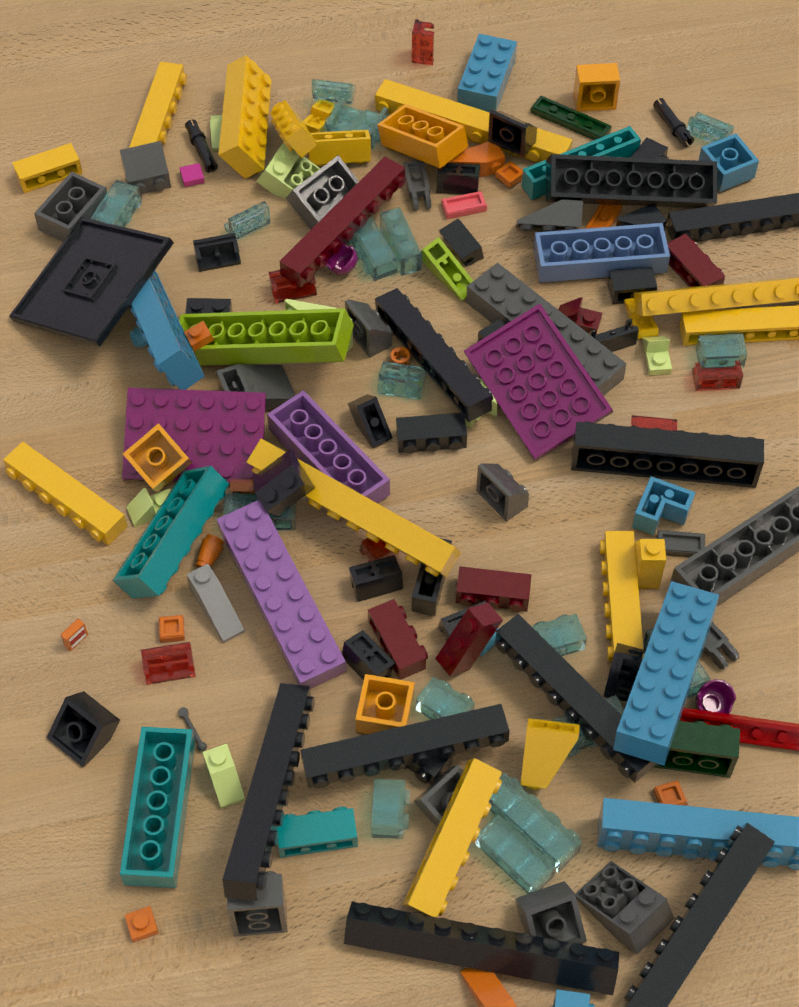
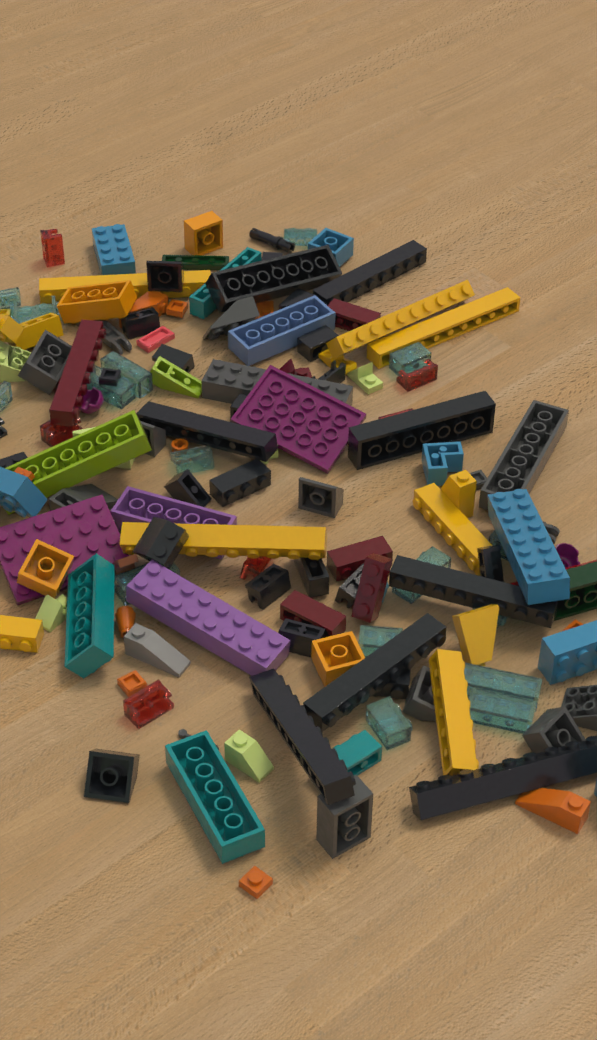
camera: 30 degrees left, 15 degrees down
(74, 634) = (57, 717): orange tile -> none
(375, 240) = (110, 377): none -> black tile

